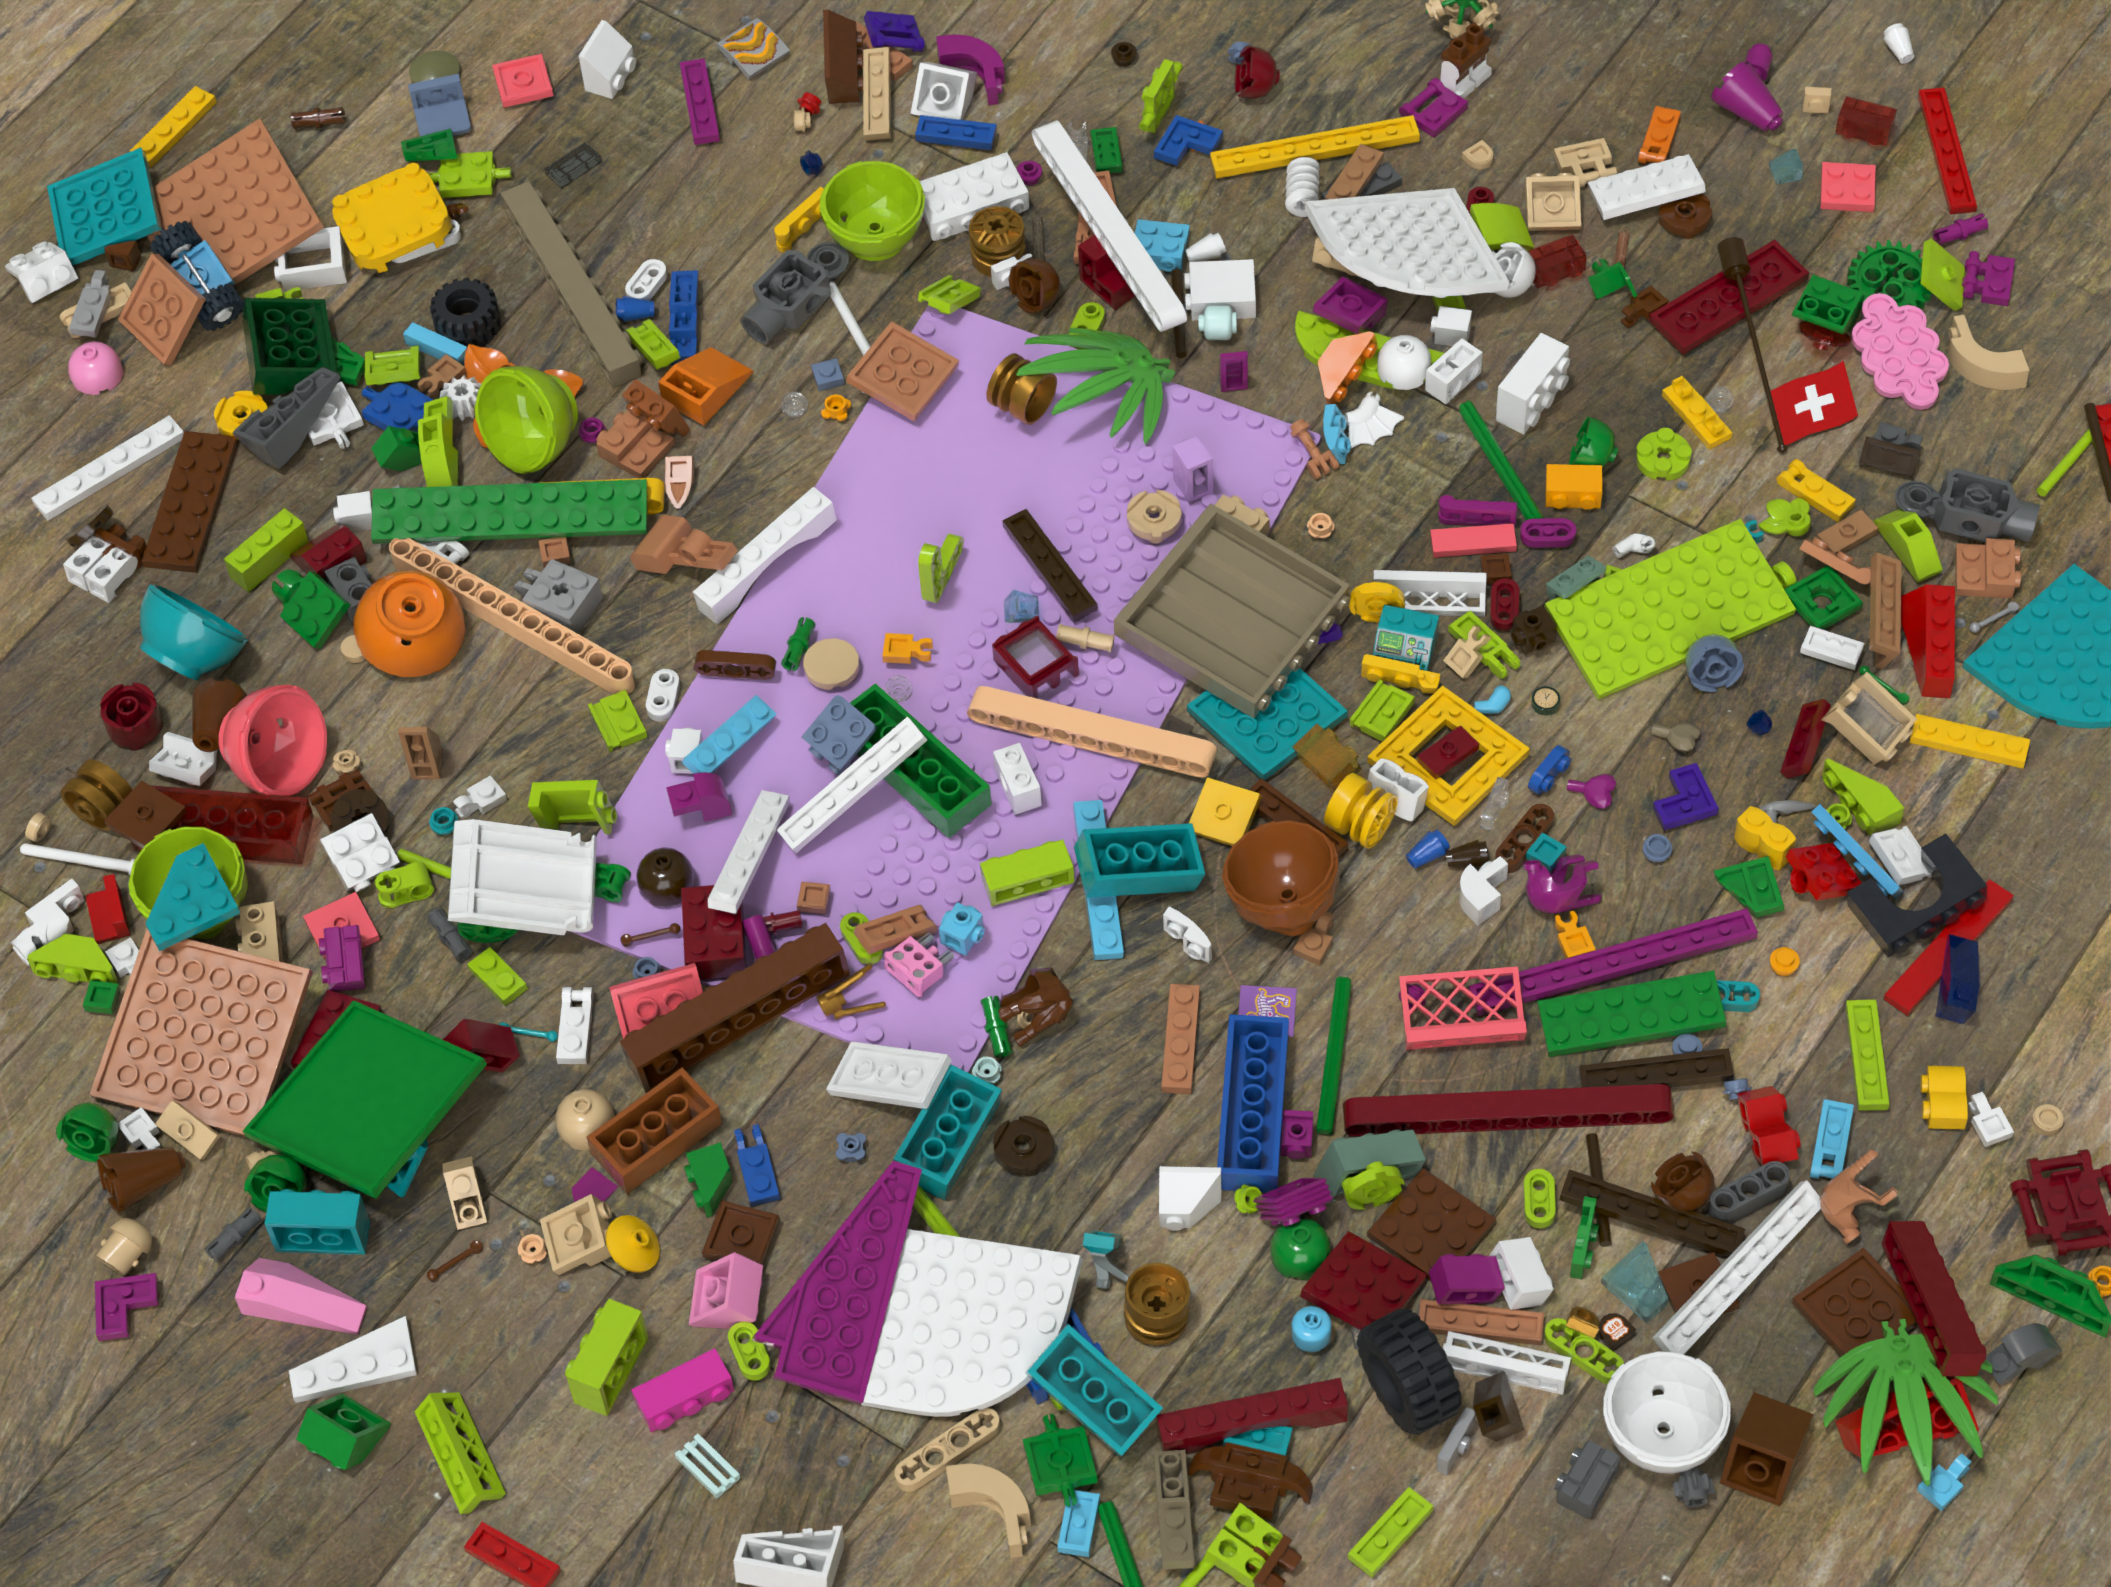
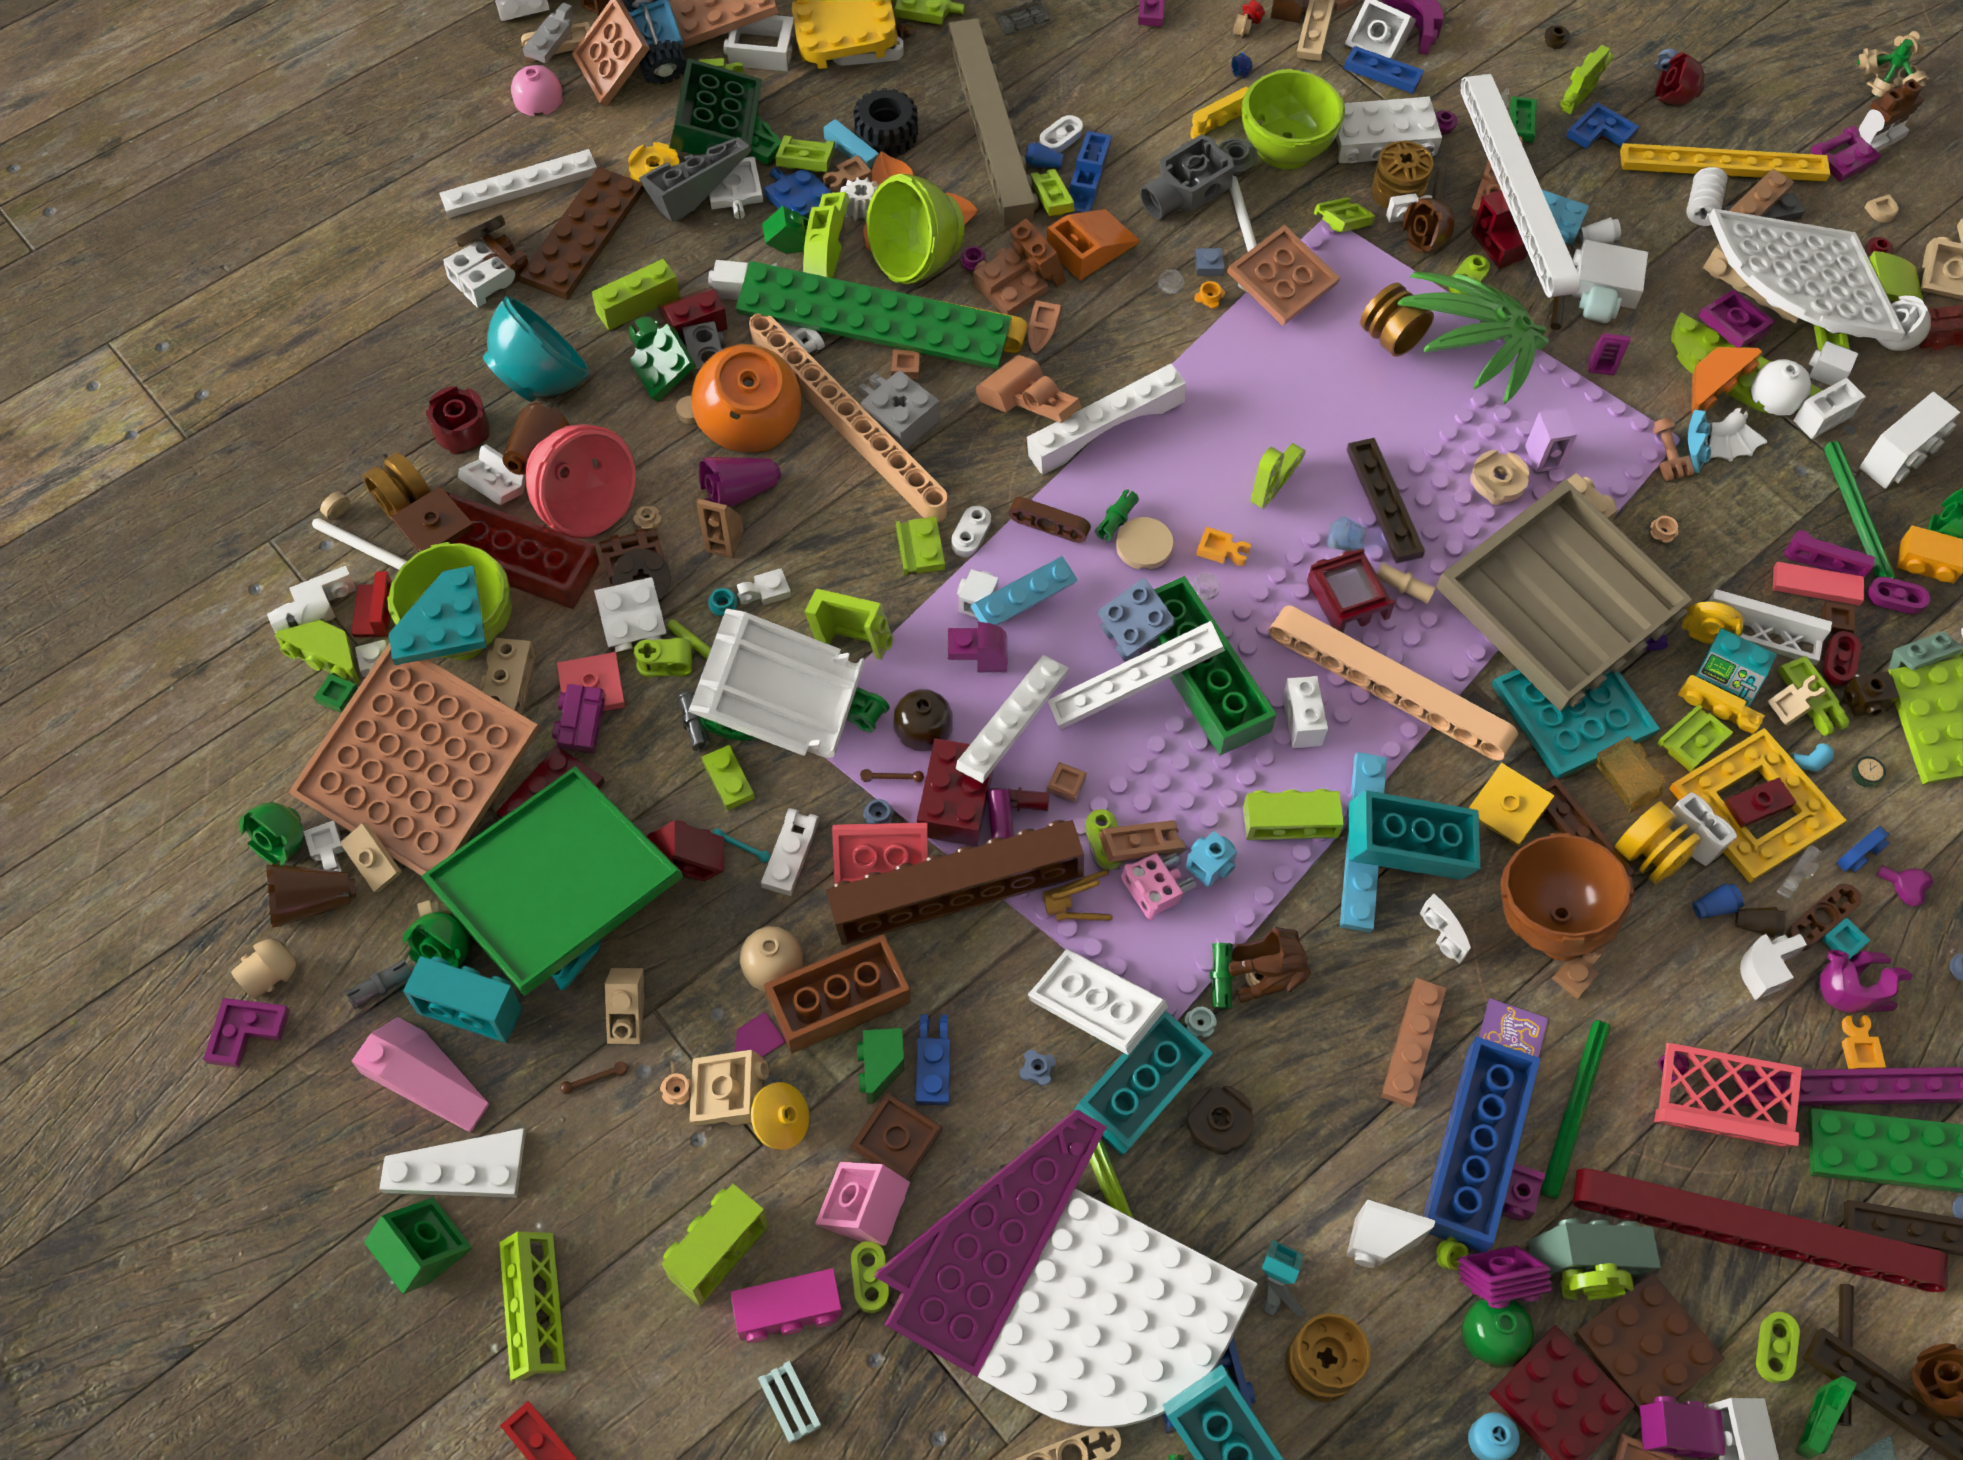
camera: 10 degrees right, 5 degrees up
(422, 702) = (736, 479): none -> magenta cone

